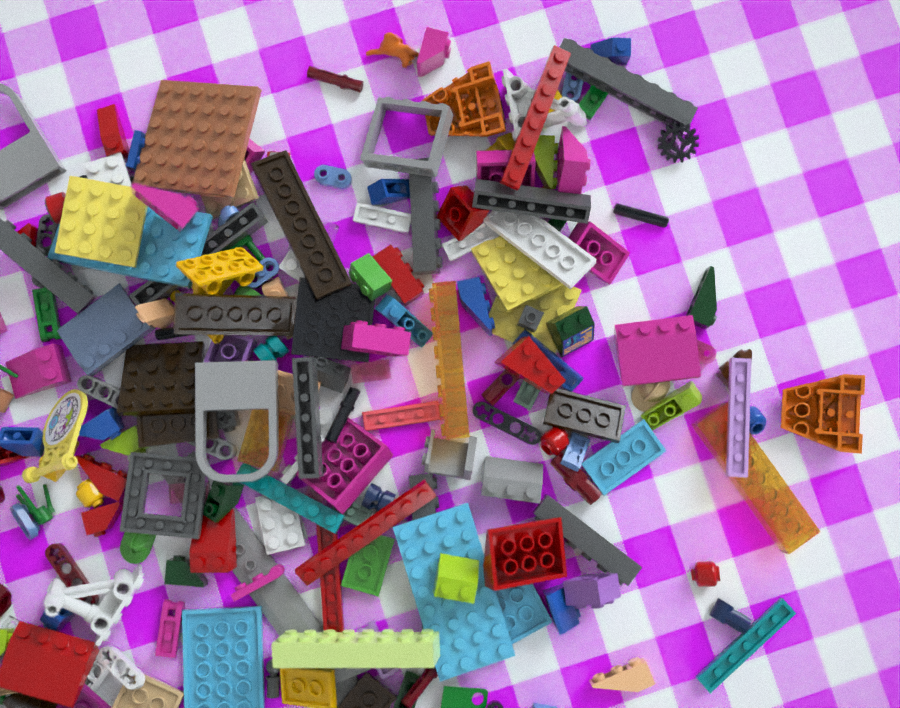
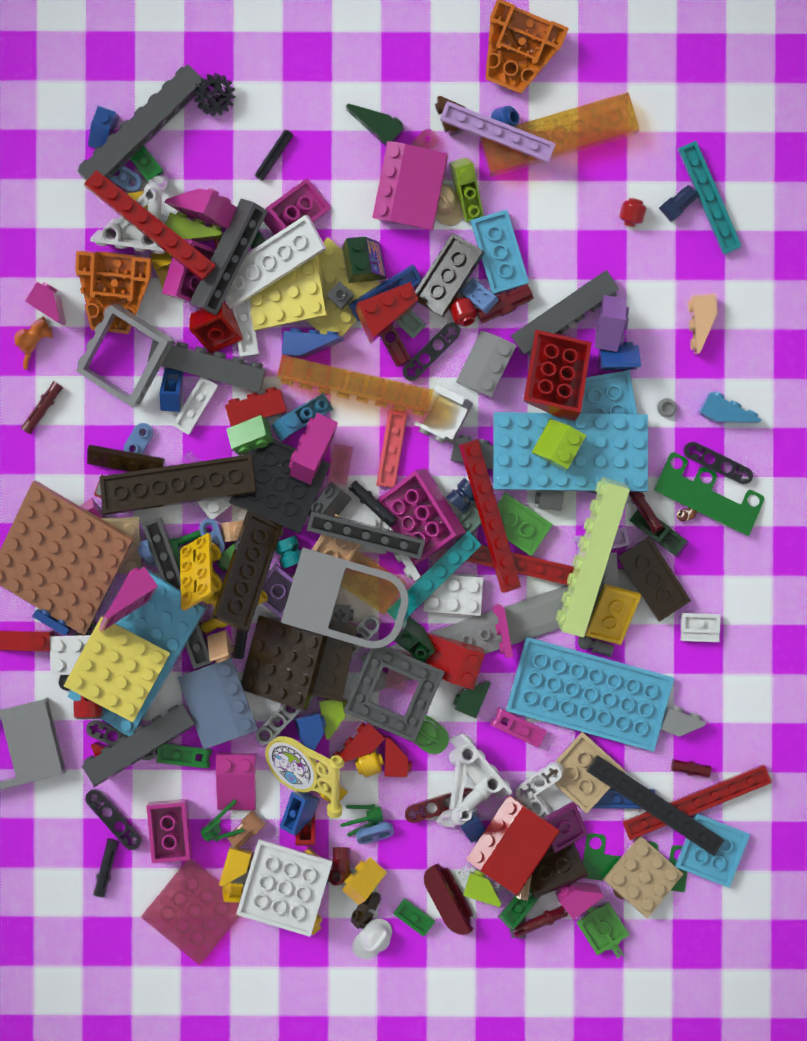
camera: 70 degrees left, 5 degrees up
(309, 167) = (122, 459): none -> dark brown plate
(400, 585) = (549, 499): none -> dark grey brick
(528, 671) = (666, 407): none -> light grey plate

